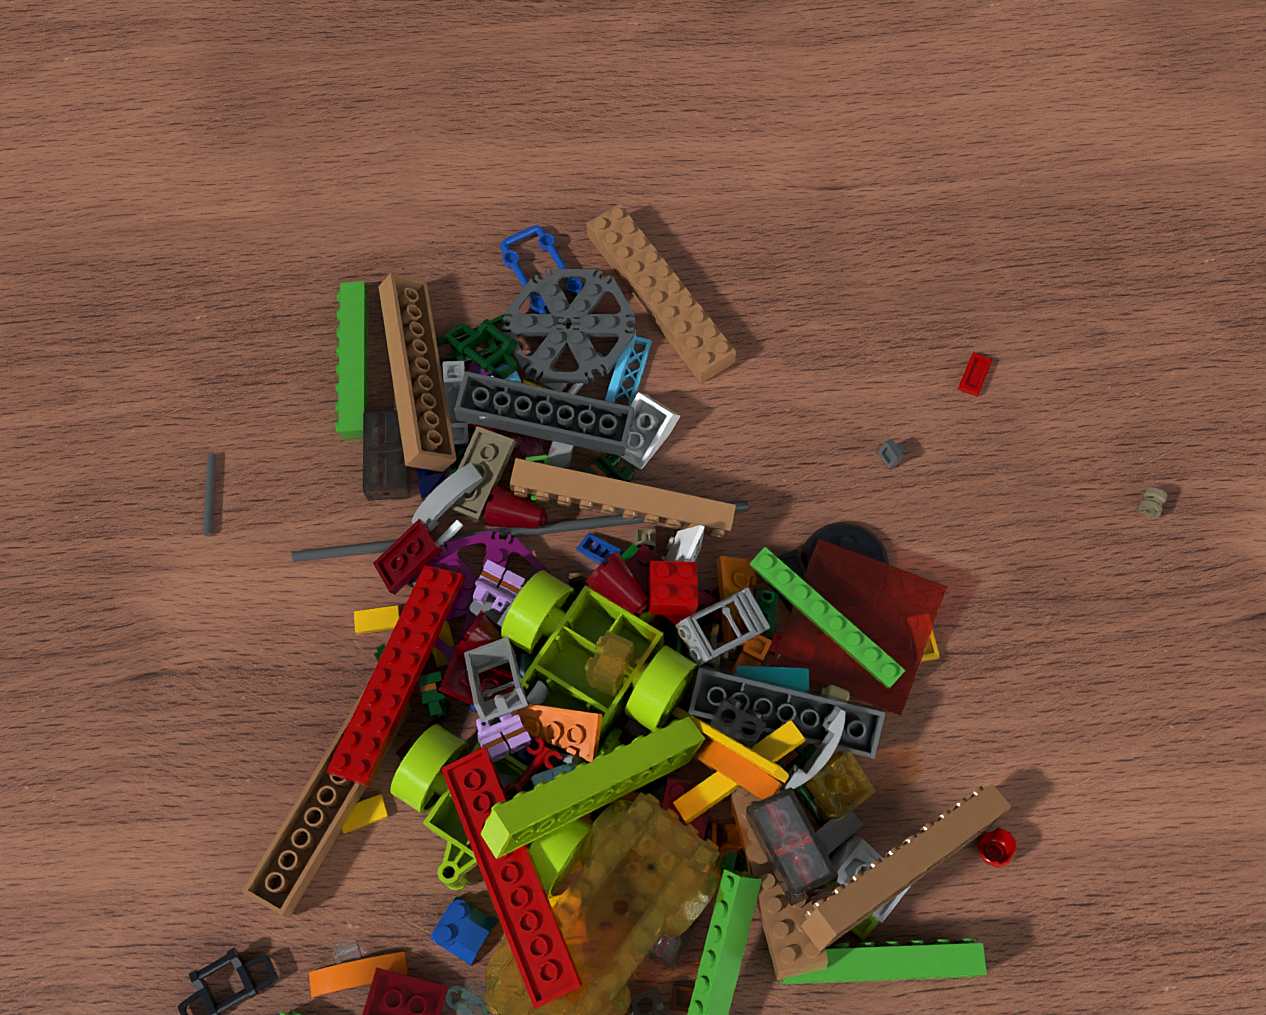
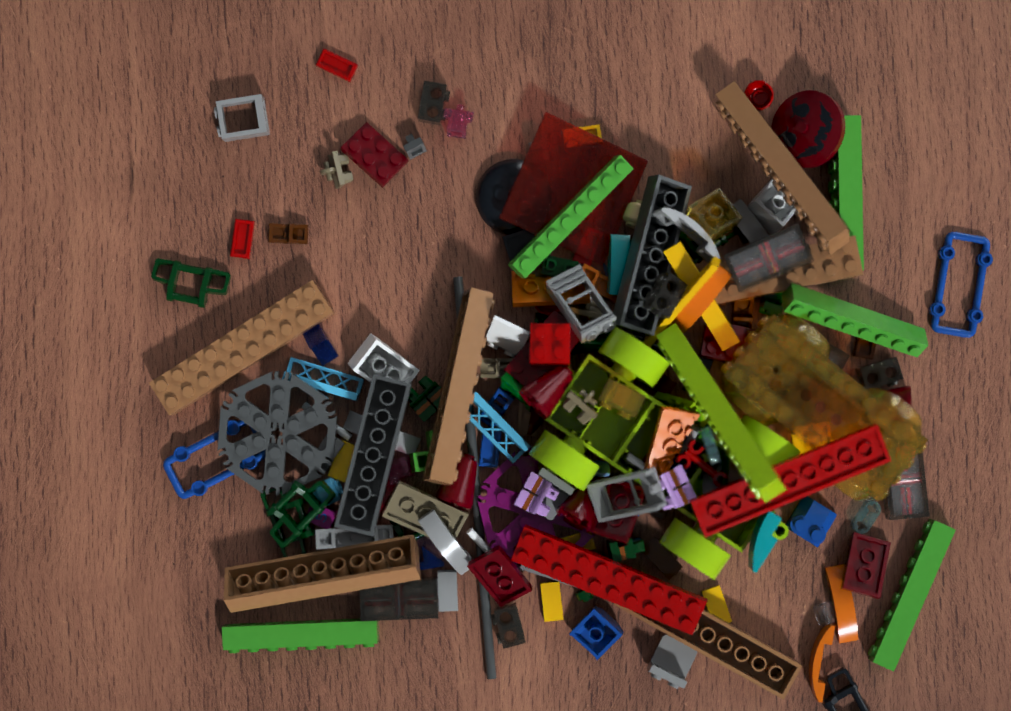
camera: 90 degrees left, 20 degrees up
(259, 940) = (824, 637): none -> orange slope
(295, 757) = (671, 661): none -> light grey bracket
(339, 669) = (597, 631): none -> blue slope
(351, 578) = (513, 624): none -> clear smoke brick
(393, 505) = (447, 590): none -> light grey slope
(439, 847) = (762, 539): none -> teal slope
(554, 547) = (489, 453): none -> blue tile
(583, 549) = (502, 426): none -> medium azure fence
(605, 622) = (587, 412): none -> dark tan hips
(665, 369) = (320, 345): none -> clear blue slope
(719, 254) = (204, 290): none -> dark green bar
(776, 290) = (242, 238): none -> red tile
(784, 332) = (288, 233): none -> reddish brown slope
(850, 380) = (334, 171): none -> dark tan hips
(879, 413) = (374, 154): none -> dark red plate
(907, 301) = (263, 129): none -> light grey window
(925, 498) = (458, 121): none -> clear pink piece
(944, 465) = (428, 102): none -> clear smoke brick
(961, 909) = (810, 127): none -> dark red dish

